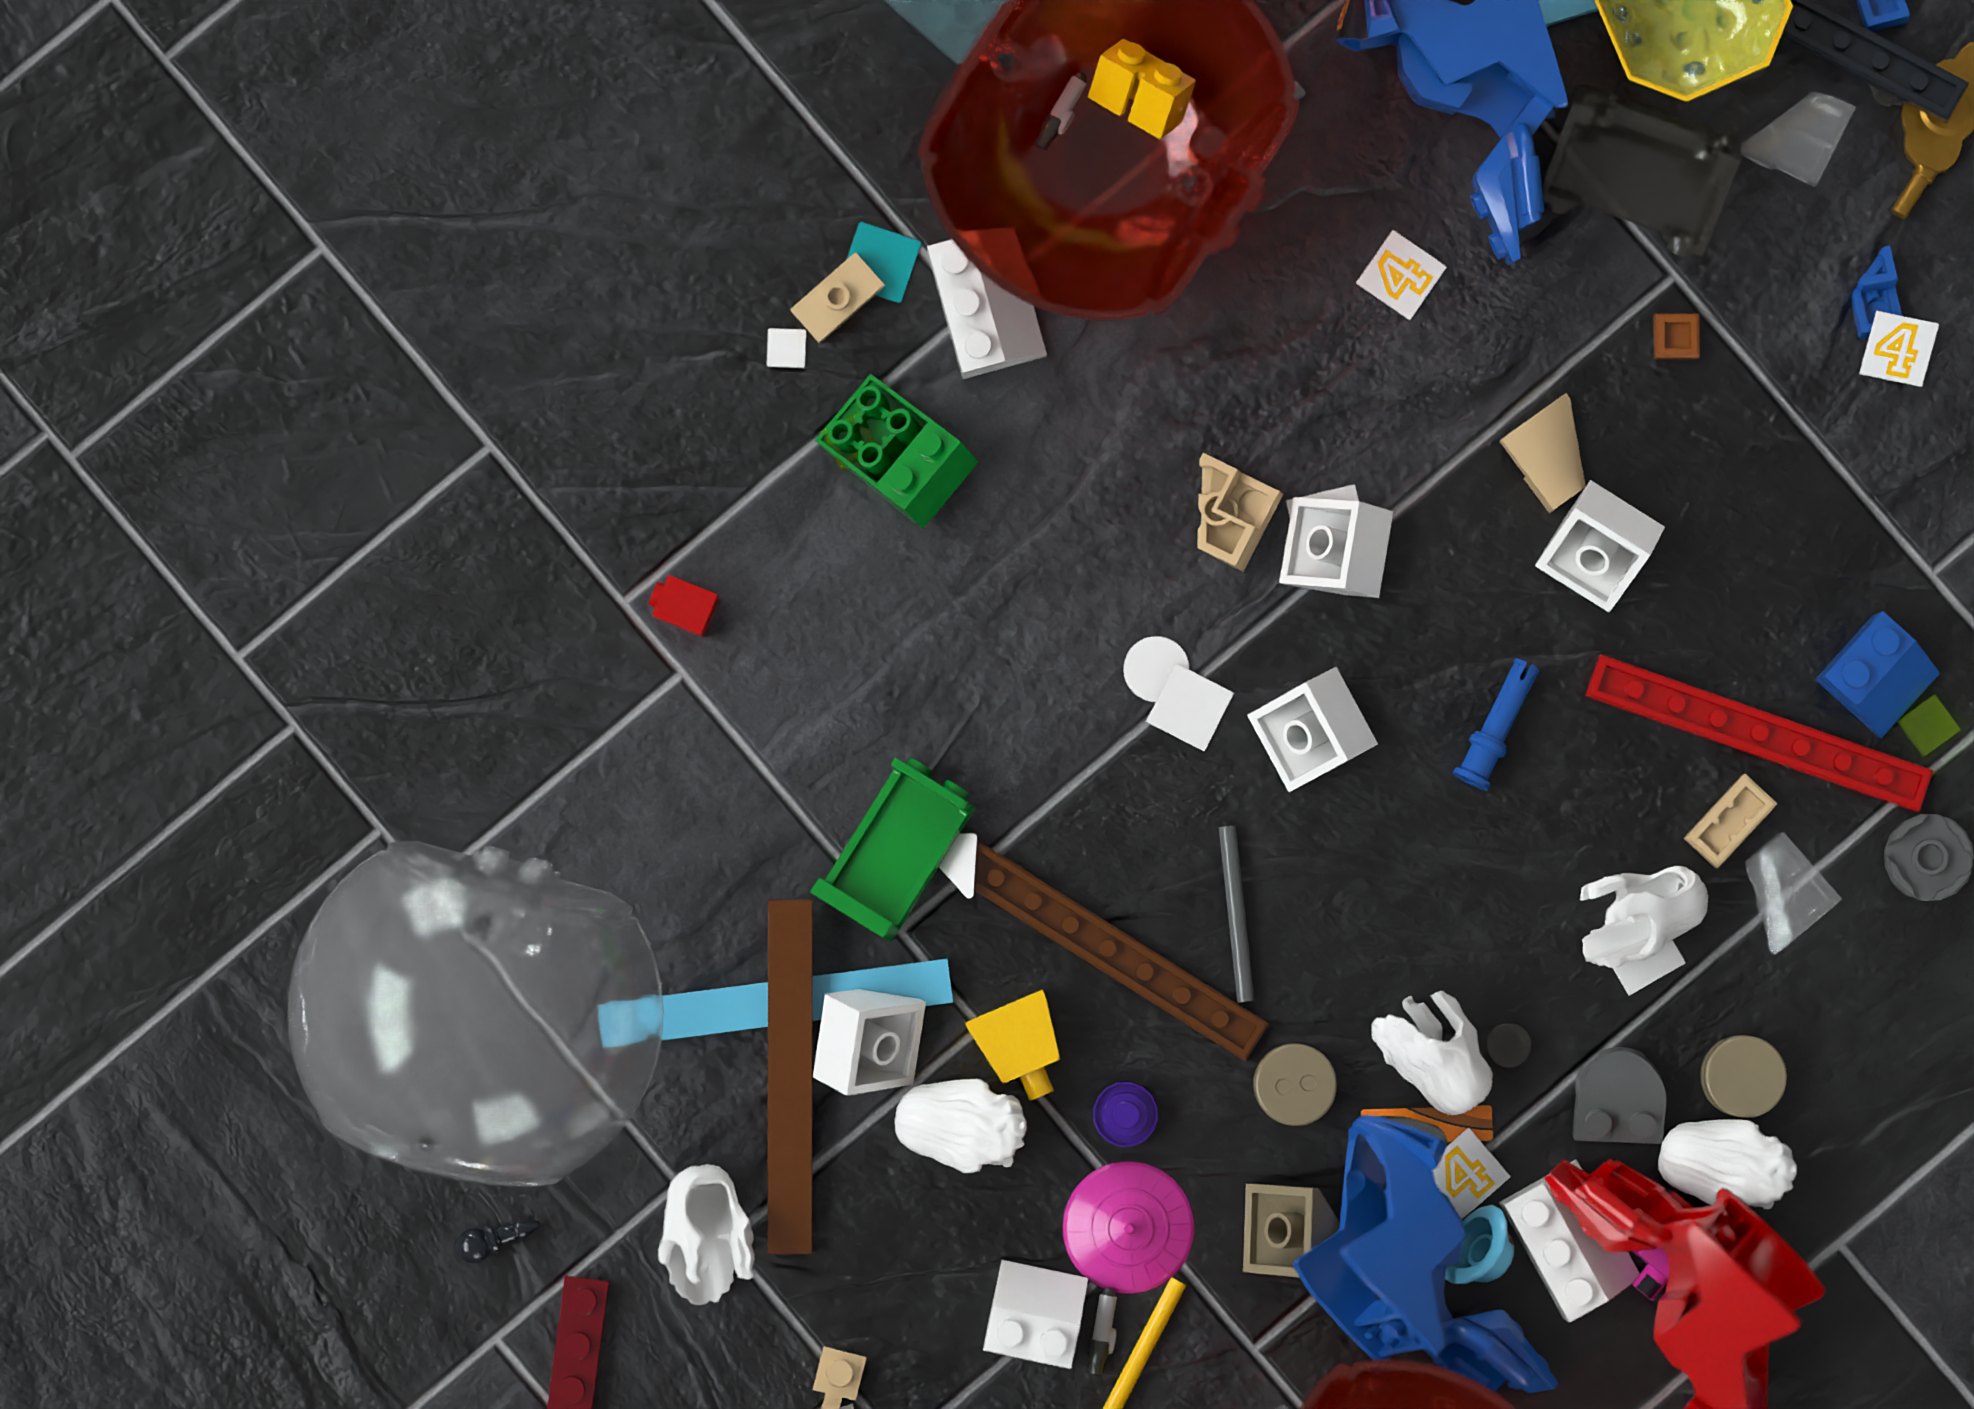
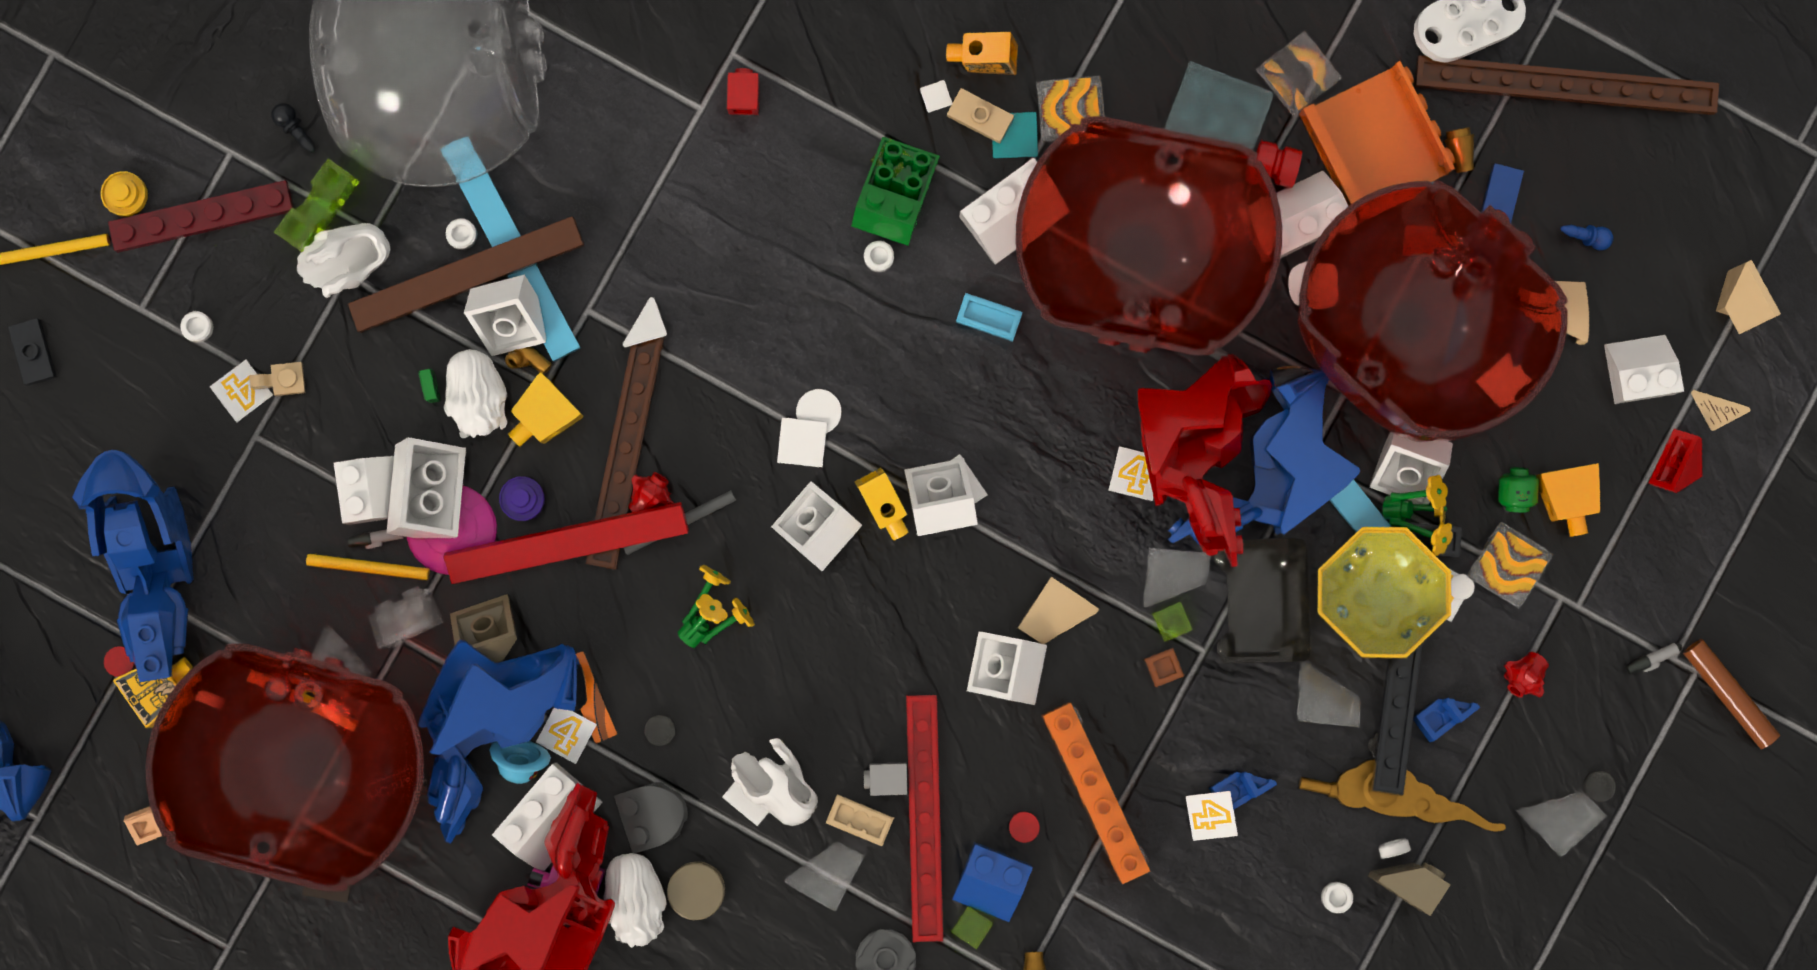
camera: 65 degrees right, 0 degrees up
(621, 1244) = (329, 192): none -> clear neon green arch
(730, 1063) = (461, 234): none -> white tile
(768, 242) = (997, 54): none -> light orange torso
(874, 172) = (1066, 102): none -> slope
(896, 849) = (636, 287): green panel -> none
(924, 1182) = (429, 386): none -> green tile
(934, 1036) = (527, 357): none -> pearl gold arm
(976, 507) = (879, 256): none -> white tile
(1061, 114) = (1153, 212): light grey piece -> none
(1066, 1239) = (426, 489): none -> white slope
(1115, 390) = (989, 317): none -> medium azure tile
(1157, 87) = (1192, 264): yellow piece -> none
(1186, 938) = (649, 492): none -> red rock
(1209, 1076) = (566, 543): none -> red tile
(1229, 1332) = (405, 619): none -> clear slope
(1232, 512) = (938, 422): tan slope -> none
(1295, 1084) = (582, 601): dark tan head -> none
(1301, 627) = (877, 491): none -> yellow torso
(1386, 173) = (1192, 433): none -> red piece
(1391, 944) = (696, 627): none -> plant
(1446, 1073) = (625, 693): white hair -> none
(1489, 744) = (849, 643): blue pin -> none
(1556, 275) = (1173, 574): none -> clear slope
(1619, 302) = (1172, 622): none -> clear neon green tile
(1689, 763) = (886, 779): none -> light grey brick
(1812, 490) = (1096, 793): none -> orange piece
(1820, 604) = (1024, 827): none -> red tile

